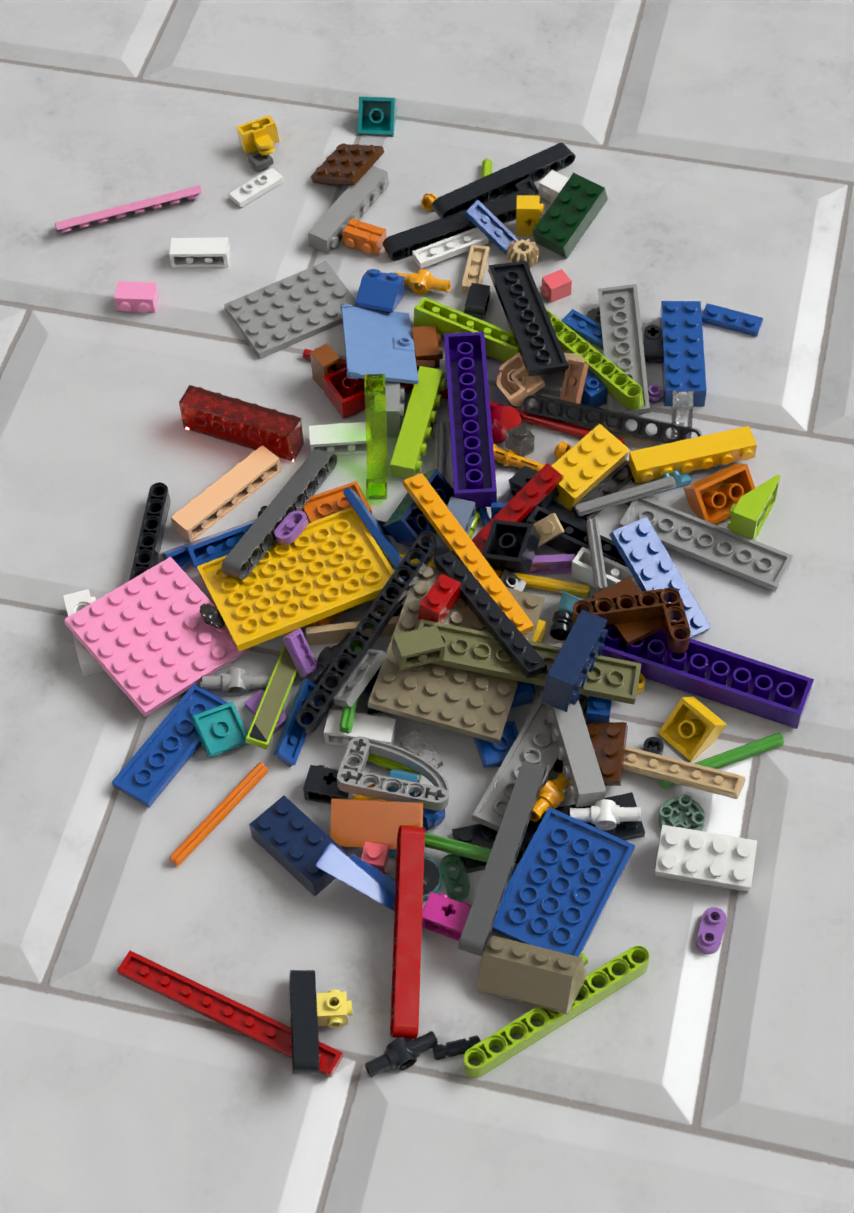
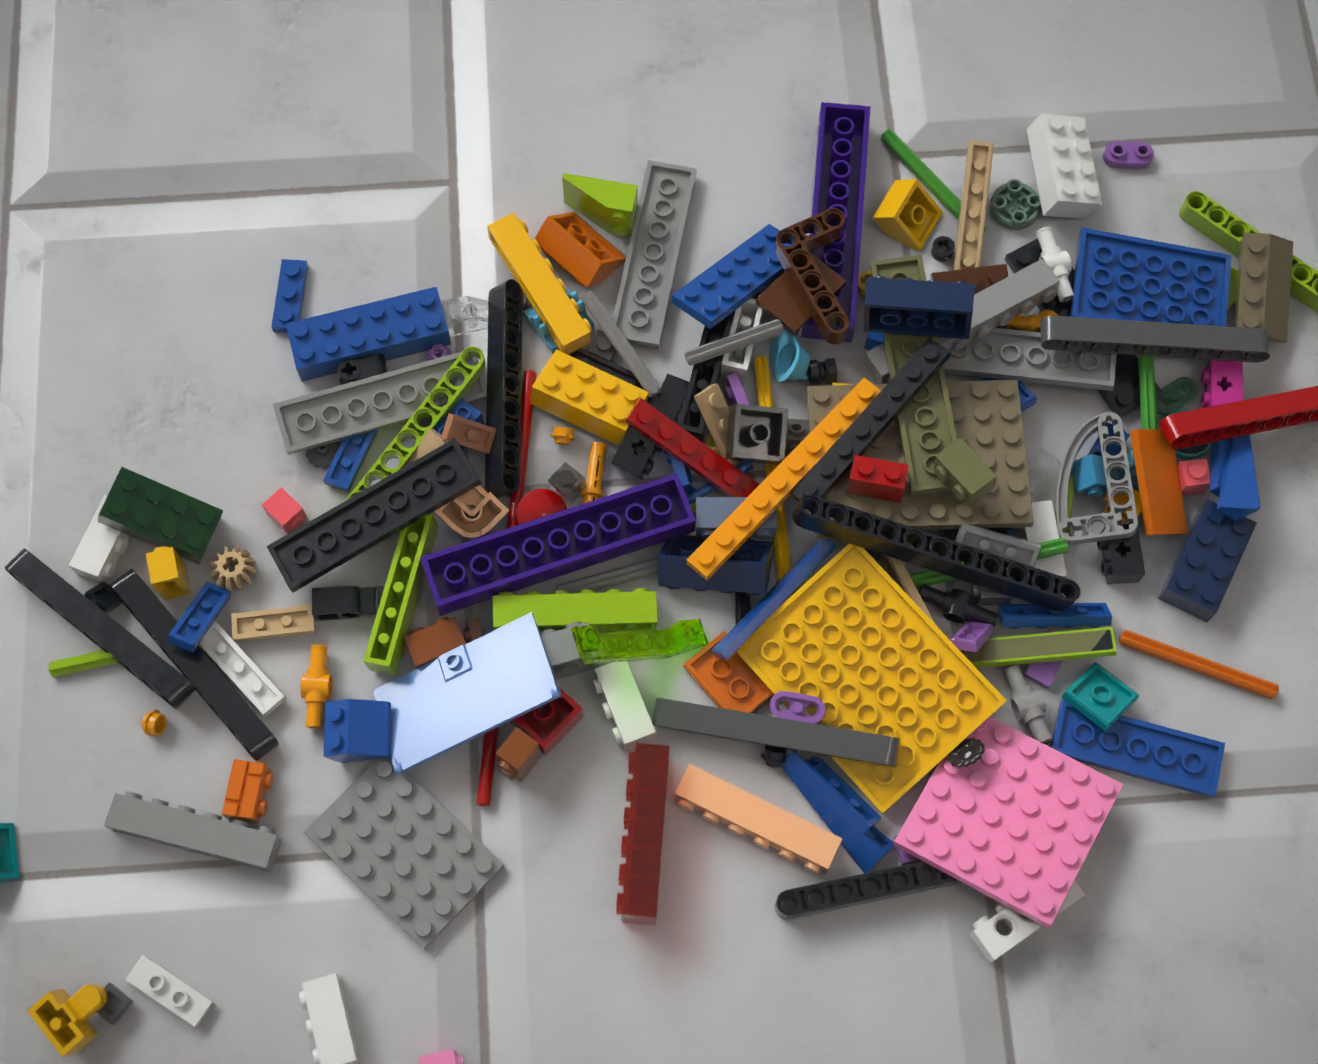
camera: 110 degrees left, 15 degrees up
(347, 164) = (104, 861): reddish brown plate -> none

